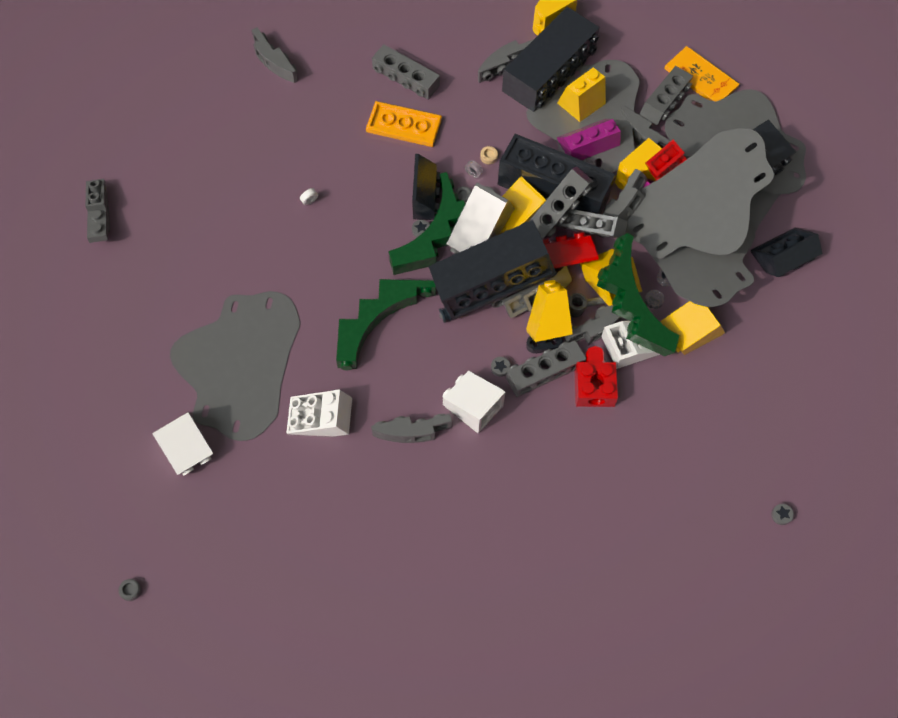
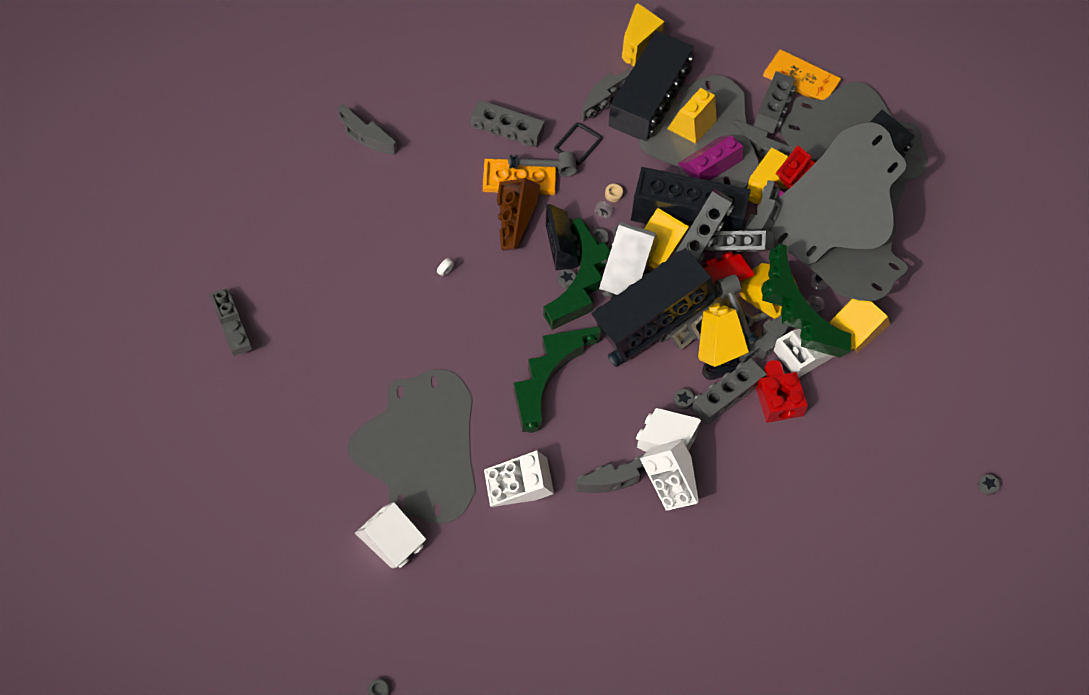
camera: 15 degrees left, 5 degrees down
(393, 147) = (516, 202): none -> reddish brown wedge
(450, 117) = (566, 163): none -> dark grey piece
(463, 439) = (671, 474): none -> white slope
(474, 113) = (570, 131): none -> black piece
(567, 267) = (728, 288): none -> dark grey piece
(787, 251) = (929, 234): black slope -> none

